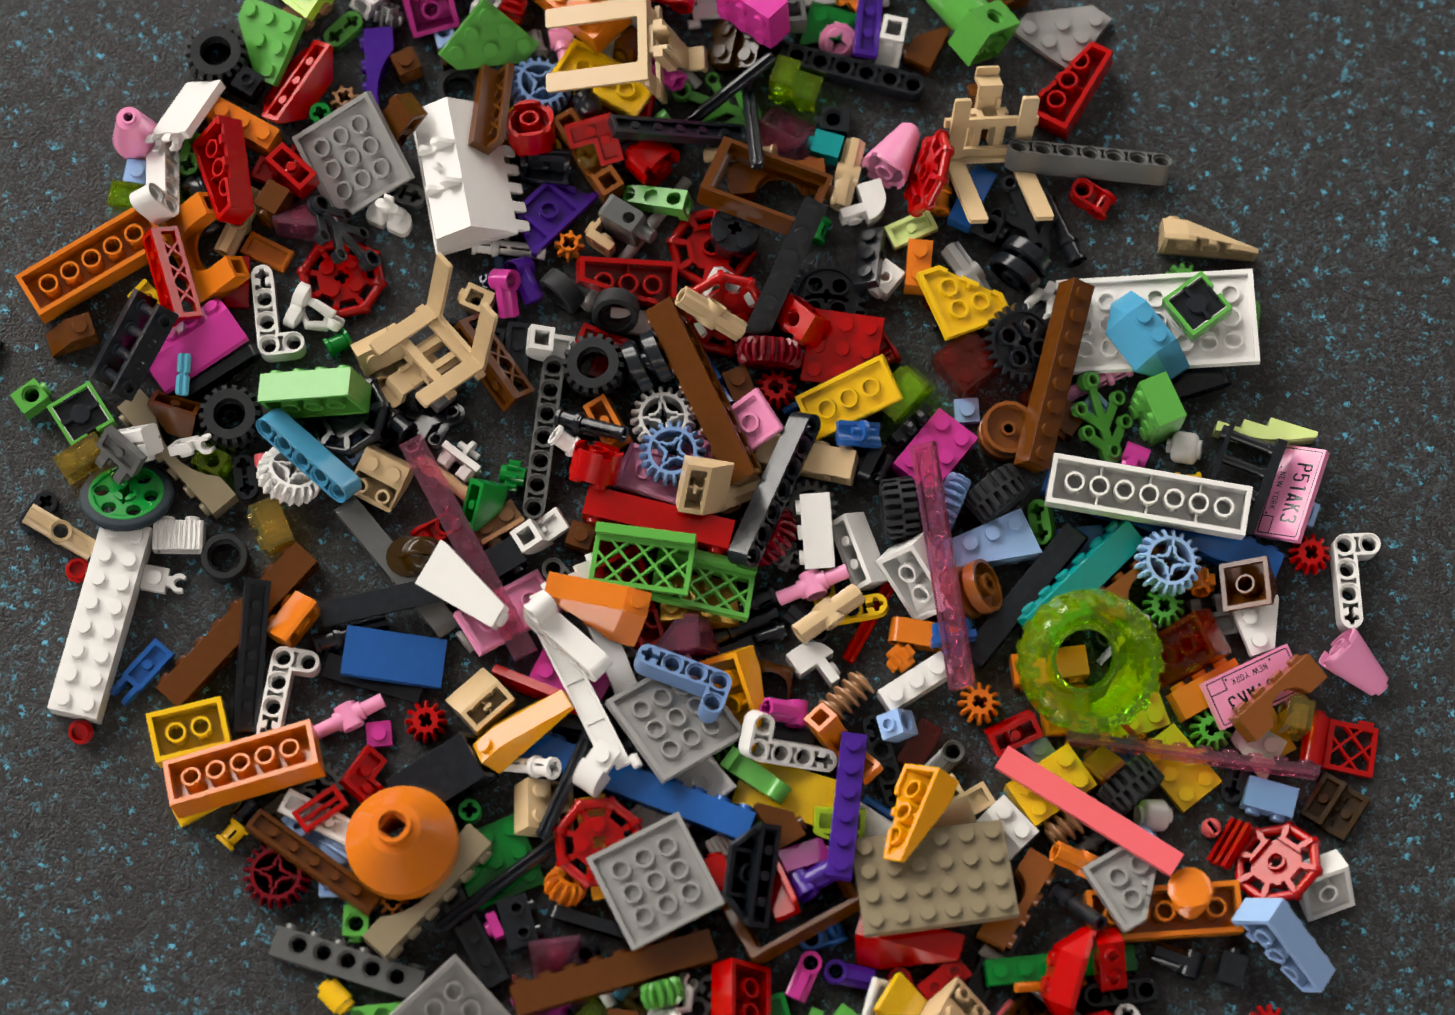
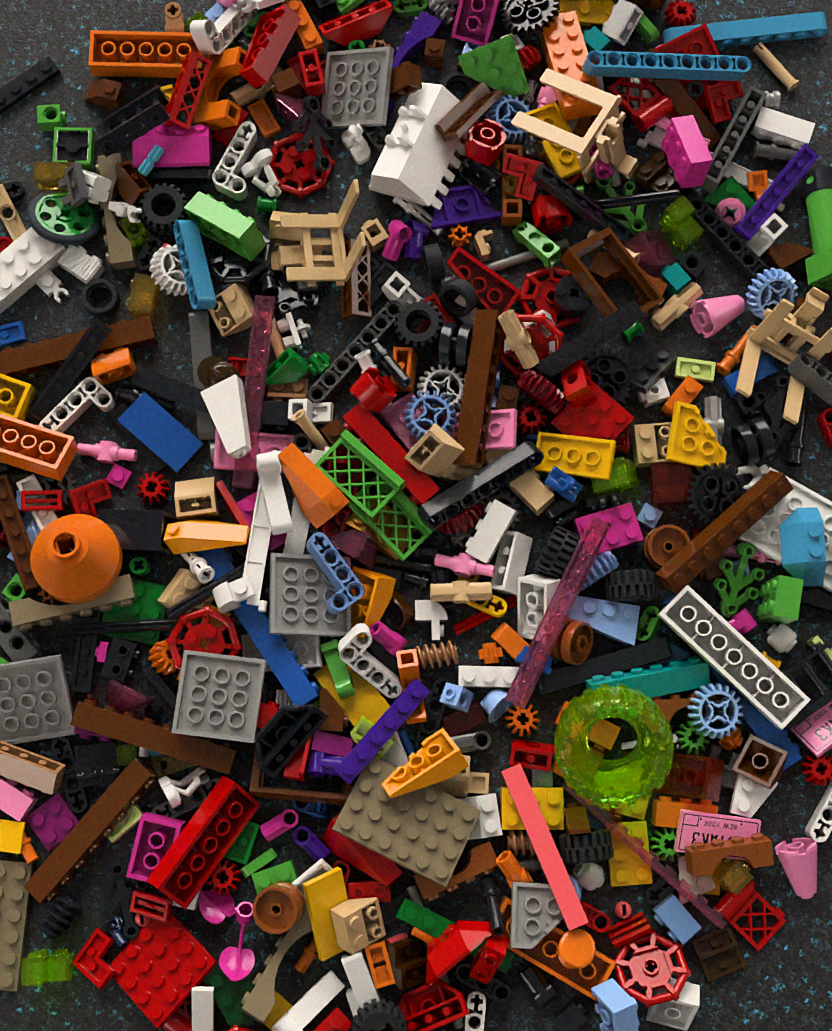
camera: 35 degrees right, 5 degrees up
(98, 211) = (175, 22): none -> medium nougat piece
(555, 549) = (310, 430): none -> tan pin
(625, 222) = (505, 243): dark grey torso -> none
(662, 993) = (176, 772): bright green gear -> none
(752, 126) = (633, 232): black axle -> none
(870, 206) = (677, 337): white brick -> none
(917, 335) = (650, 443): none -> tan slope
(924, 103) = (761, 293): none -> light blue gear
(929, 173) = (731, 339): red plate -> none
(942, 705) = (495, 704): none -> light blue piece
(1187, 860) = (591, 914): none -> red piece

